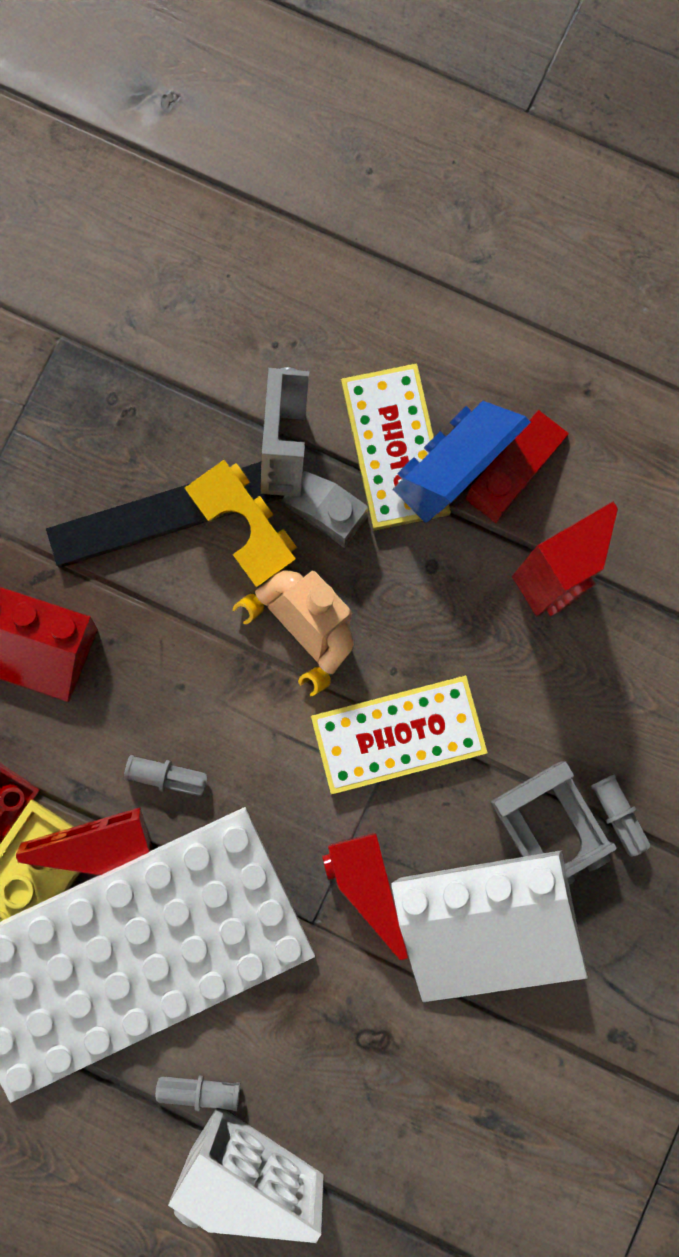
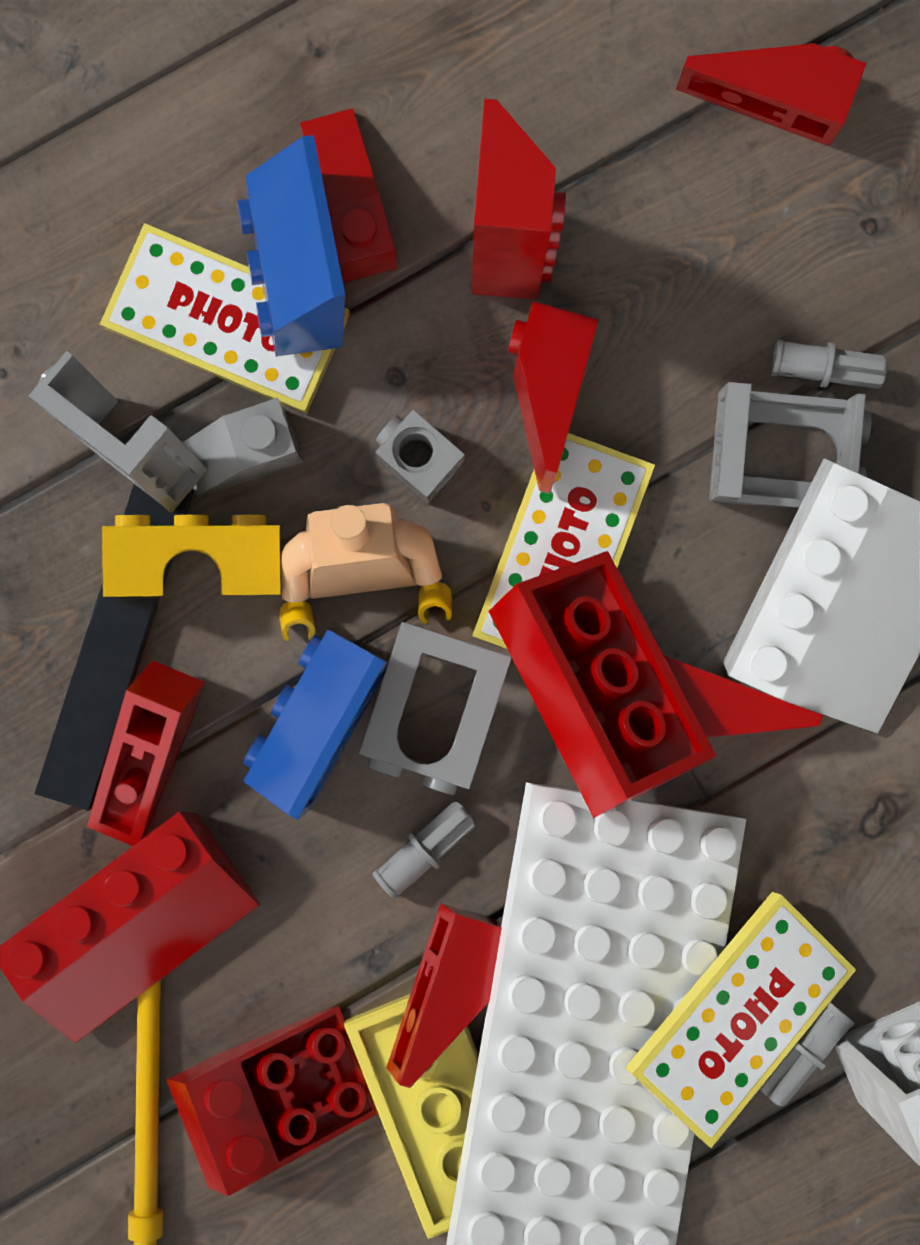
camera: 55 degrees left, 5 degrees up
(112, 573) = (144, 751): none -> red slope
(192, 1037) = (741, 1019): none -> tile
(195, 659) = (313, 722): none -> blue slope
(232, 760) = (381, 735): none -> light grey panel
(333, 809) = (600, 682): none -> red slope
(388, 627) = (423, 480): none -> light grey brick
(496, 652) = (548, 378): none -> red slope

